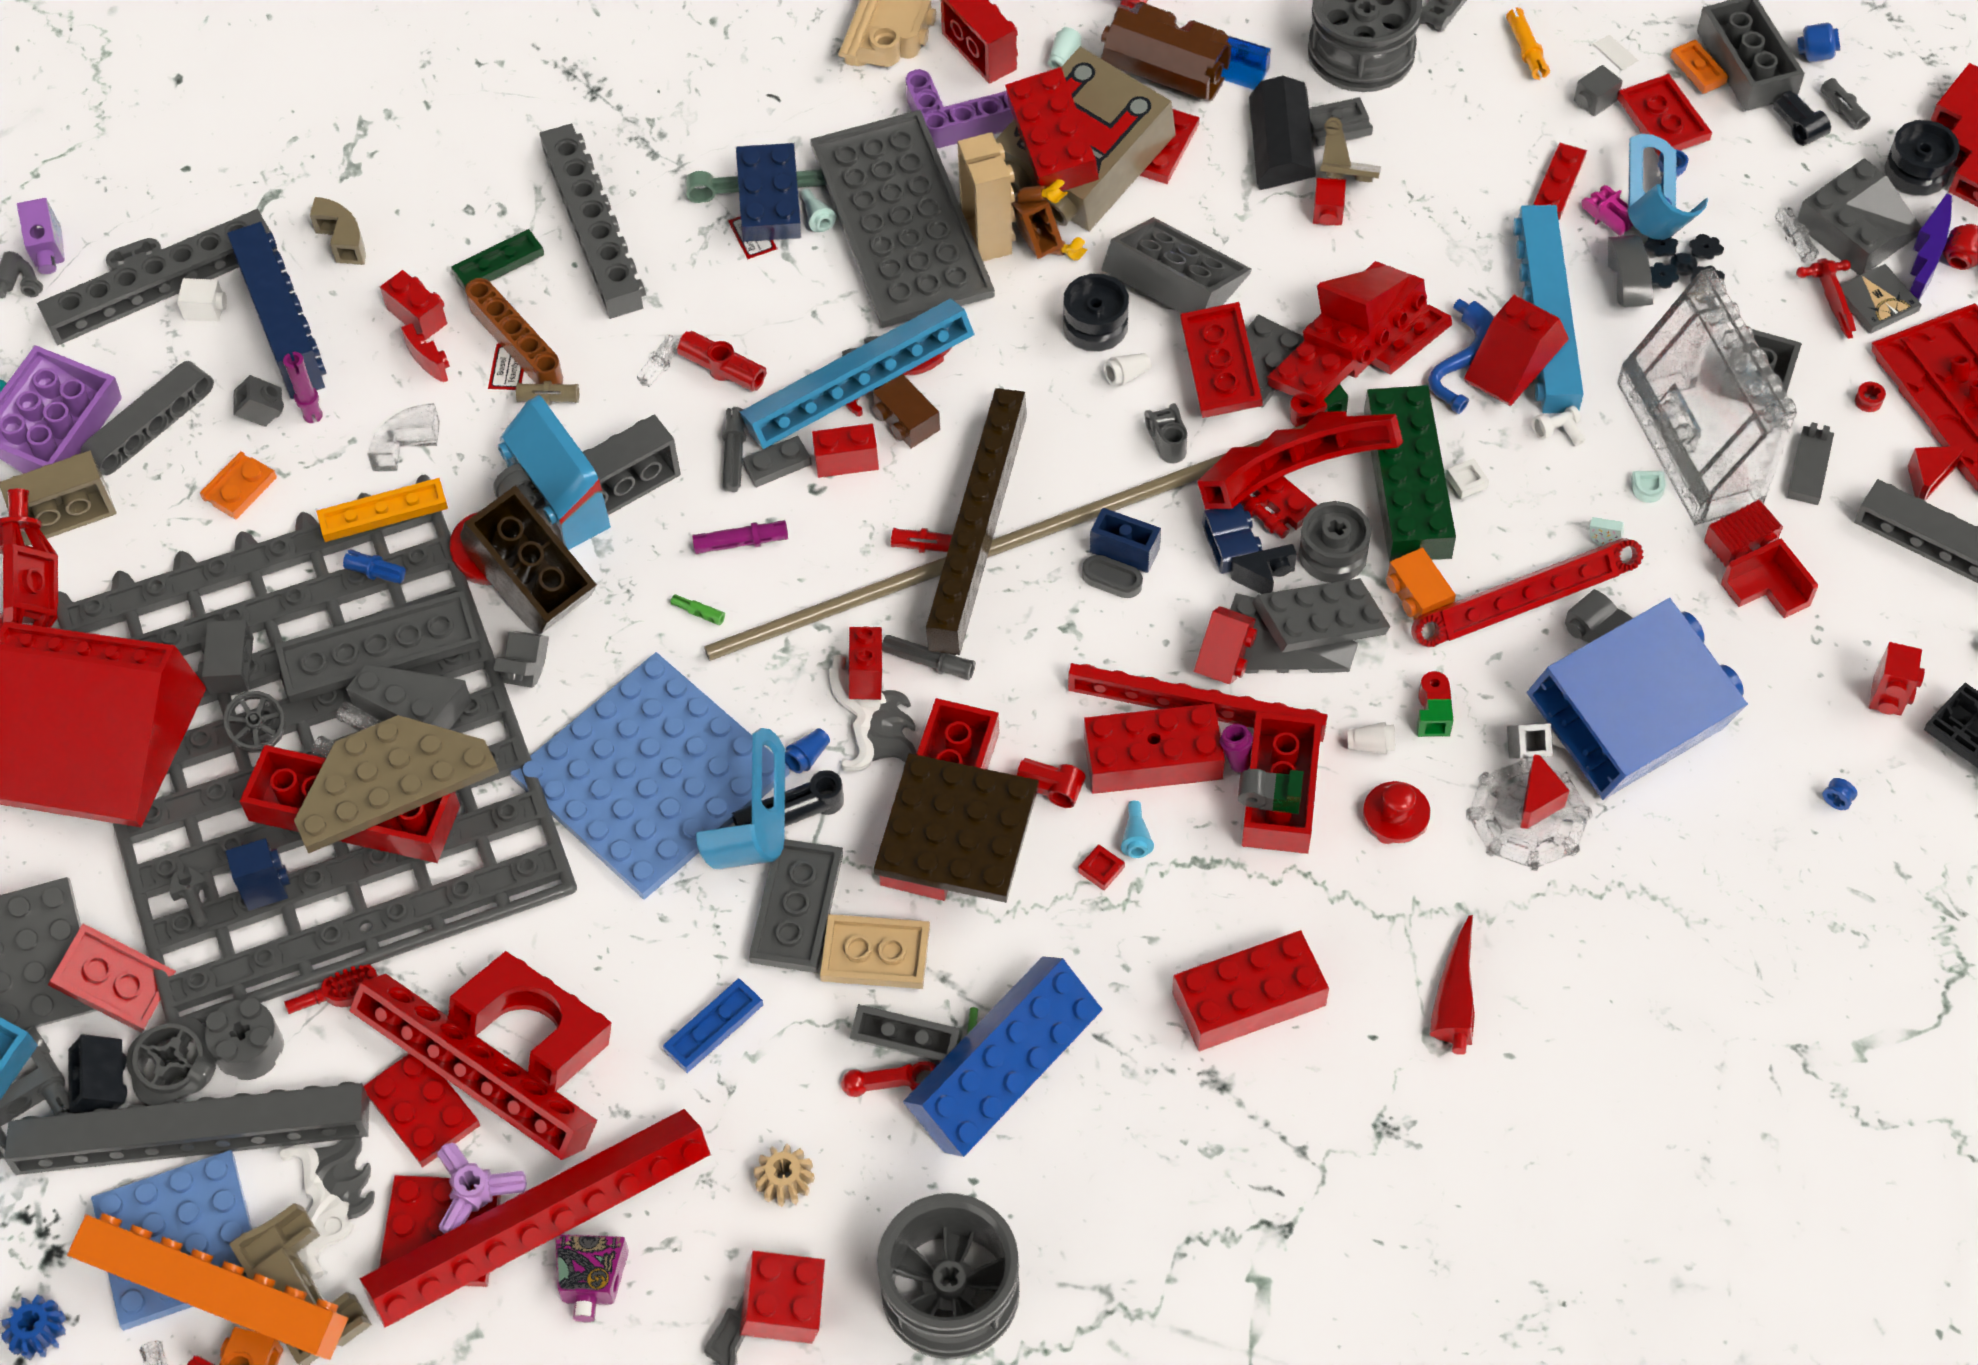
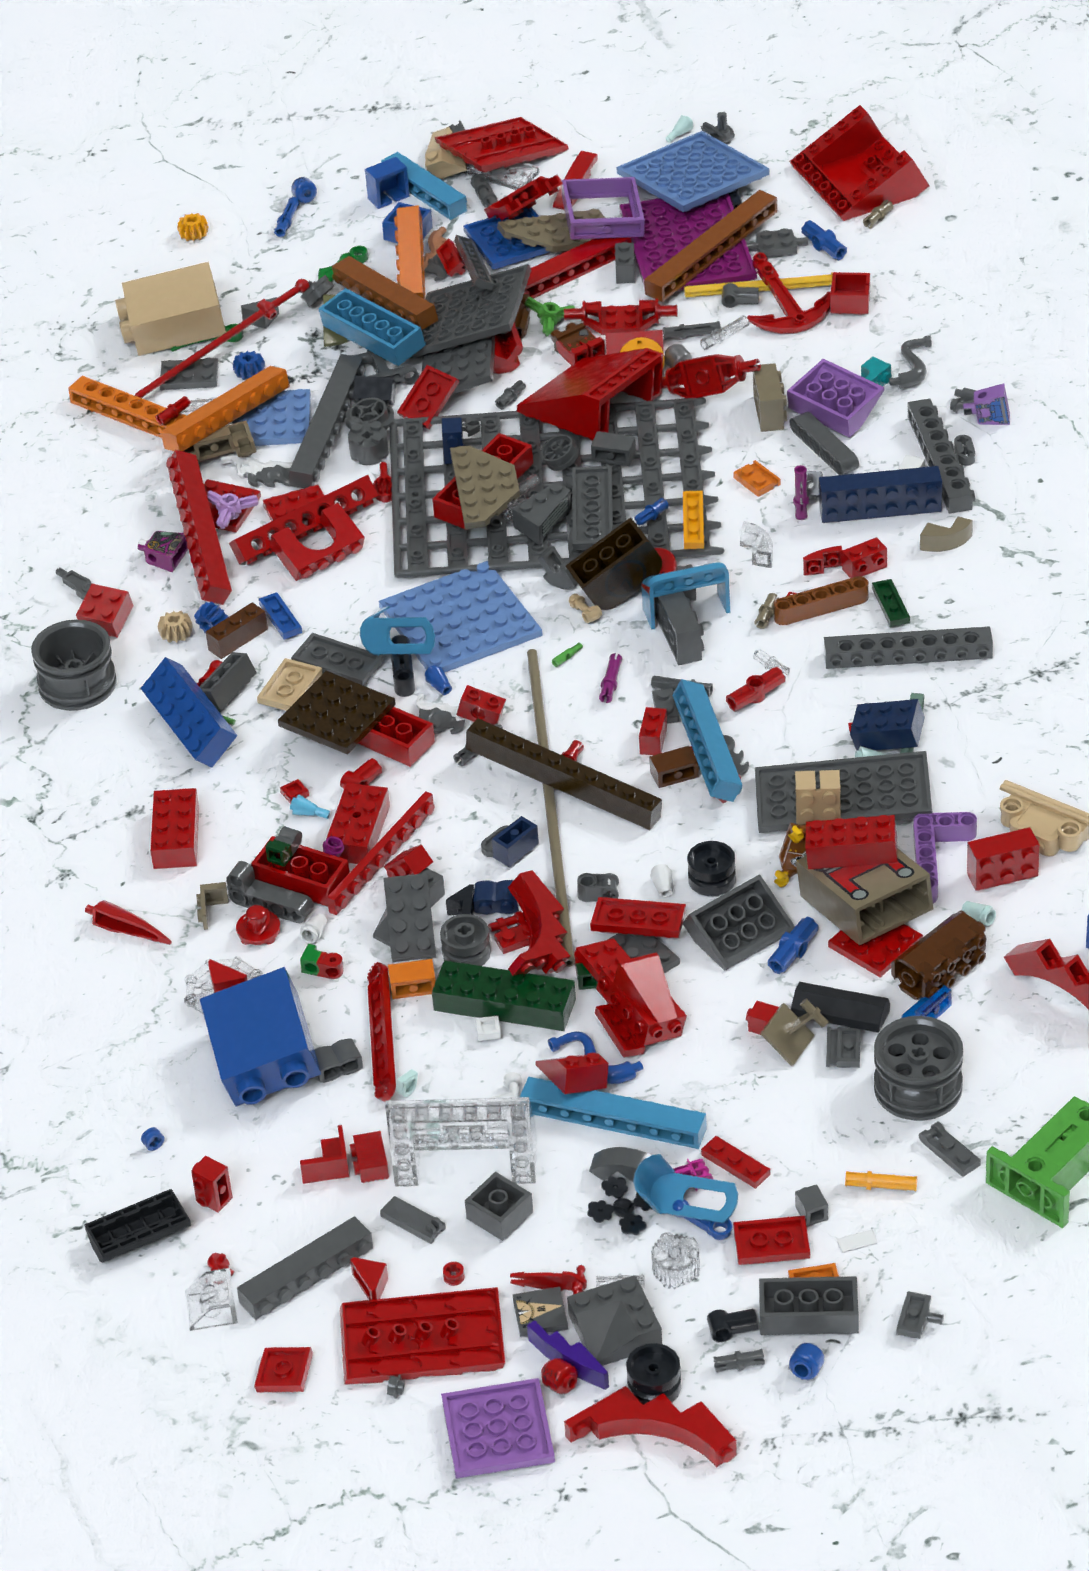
camera: 110 degrees right, 15 degrees down
(78, 875) = (510, 394): none -> dark grey axle
(602, 600) = (589, 614): none -> tan bar
(761, 1114) = (209, 616): none -> blue gear
(773, 1071) = (236, 630): none -> reddish brown brick
(1190, 206) = (793, 945): none -> blue piece
(1341, 811) = (247, 891): none -> dark grey beam
(1359, 887) = (210, 895): none -> dark tan bracket
(1747, 184) = (675, 1259): none -> clear brick

